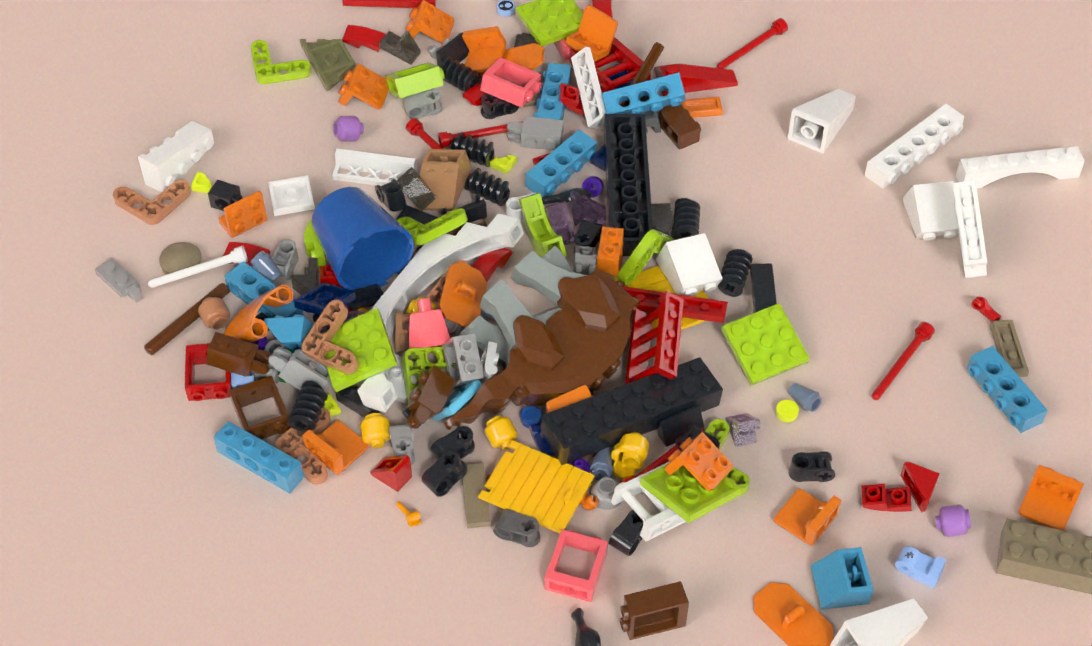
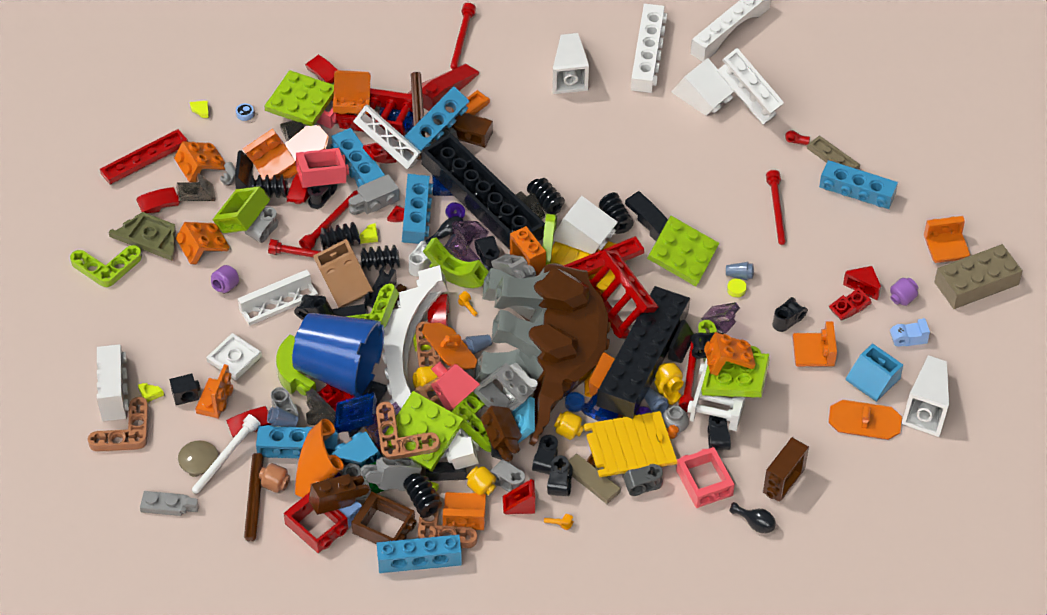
camera: 40 degrees left, 0 degrees up
(416, 189) = (331, 290): clear smoke slope -> none

